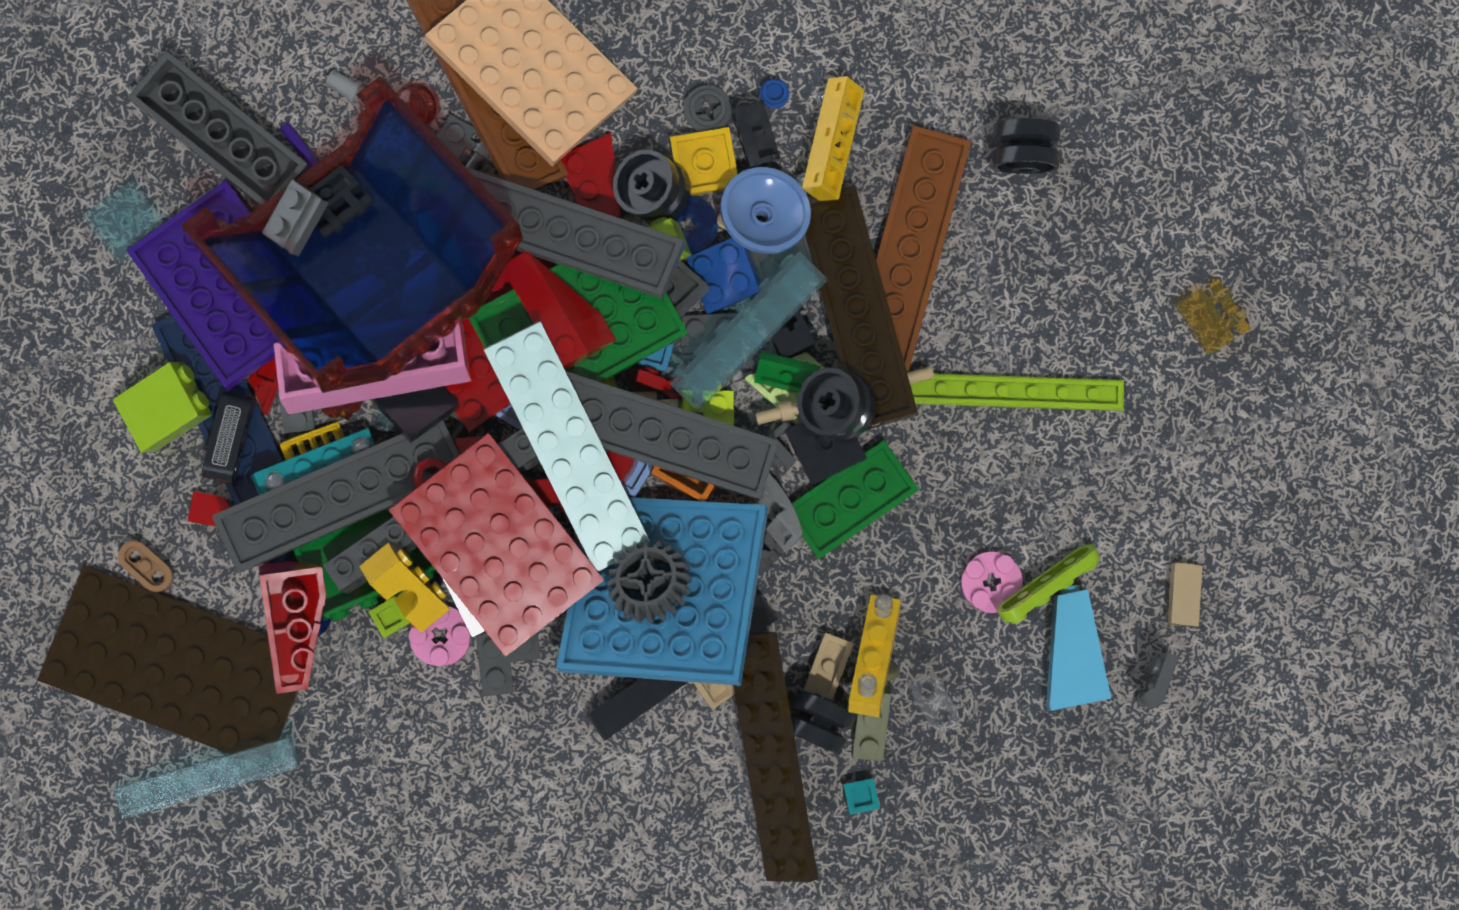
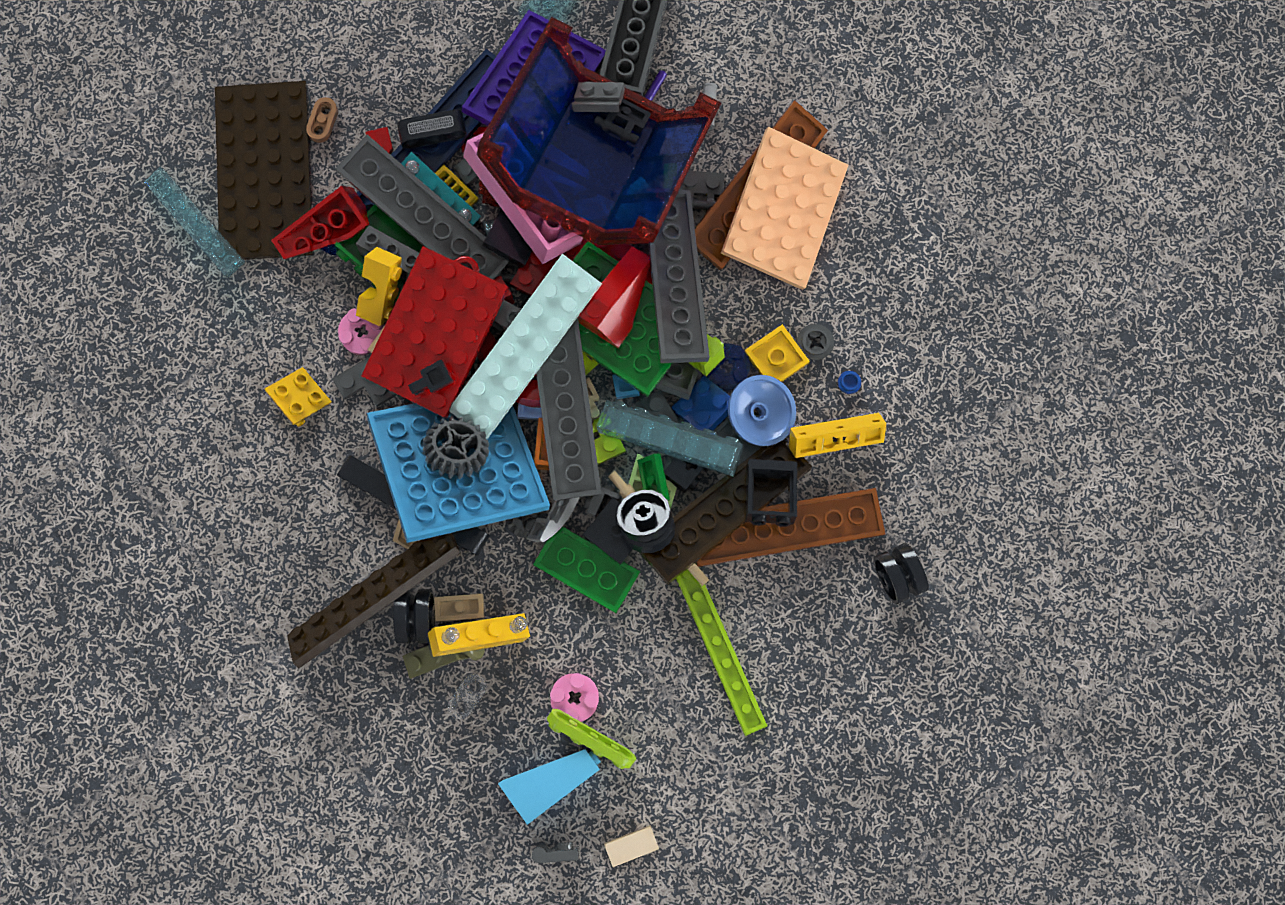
camera: 65 degrees right, 5 degrees down
(162, 406) = (433, 79): lime brick -> none
(388, 618) = (355, 288): lime plate -> none
(422, 100) = (719, 149): clear red hair -> none
(485, 745) = (298, 396): none -> yellow hinge
(556, 568) = (434, 377): none -> black plate
(592, 175) = (727, 288): red wing -> none
(649, 380) = (605, 388): red plate -> none
(651, 186) = (740, 326): black wheel -> none
(755, 133) = (814, 381): black hinge -> none
(841, 232) = (772, 470): none -> black window
(861, 796) = (376, 674): teal plate -> none
(1205, 320) = (839, 767): clear yellow plate -> none

